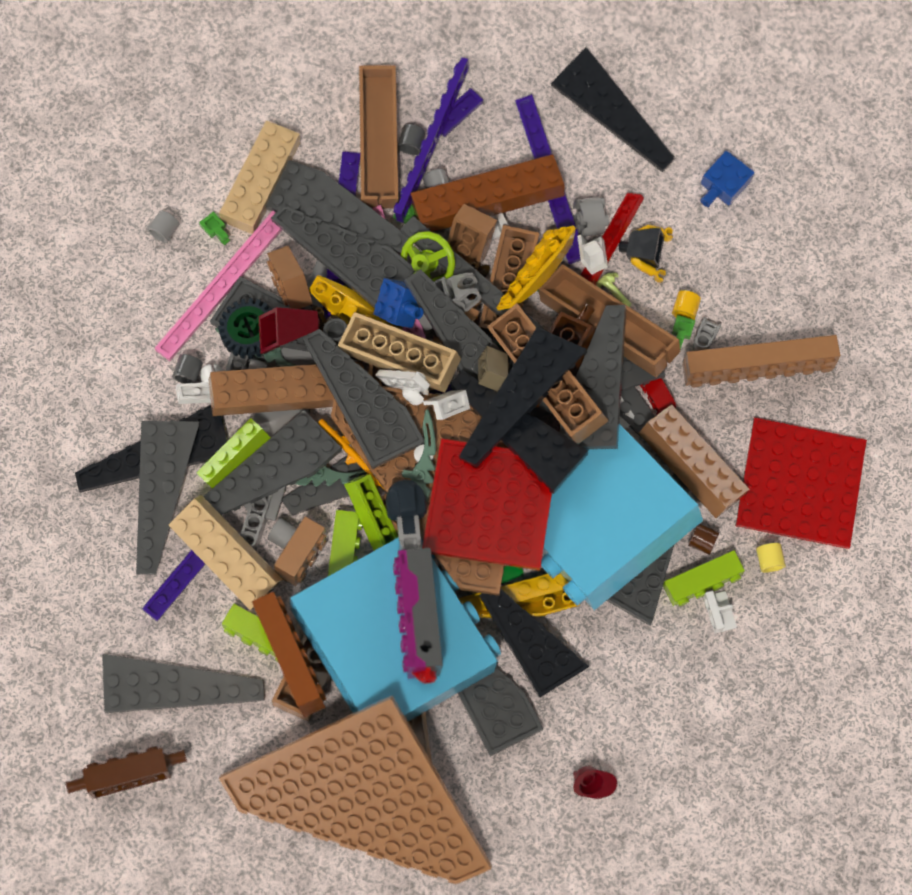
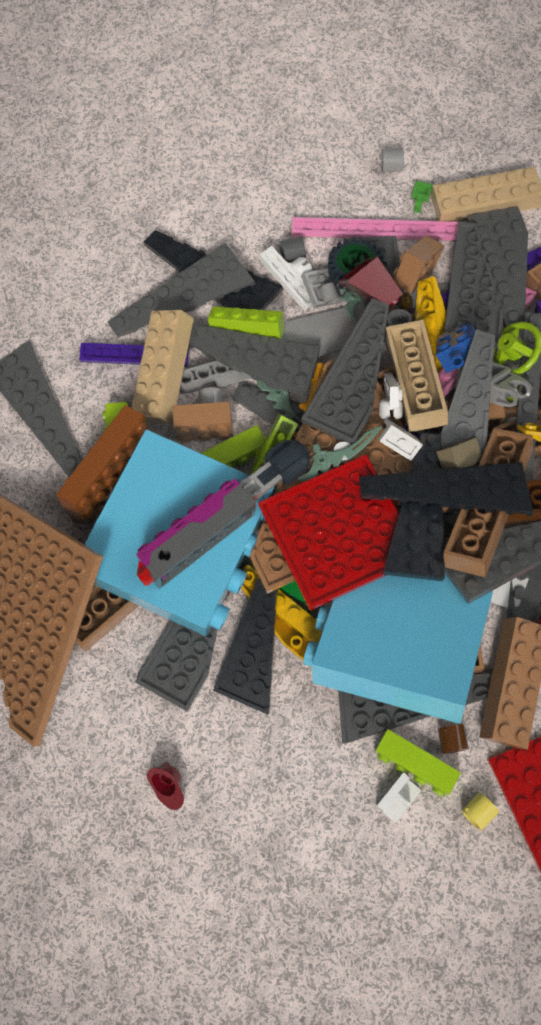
camera: 65 degrees right, 0 degrees up
(269, 390) = (314, 307): medium nougat piece -> none

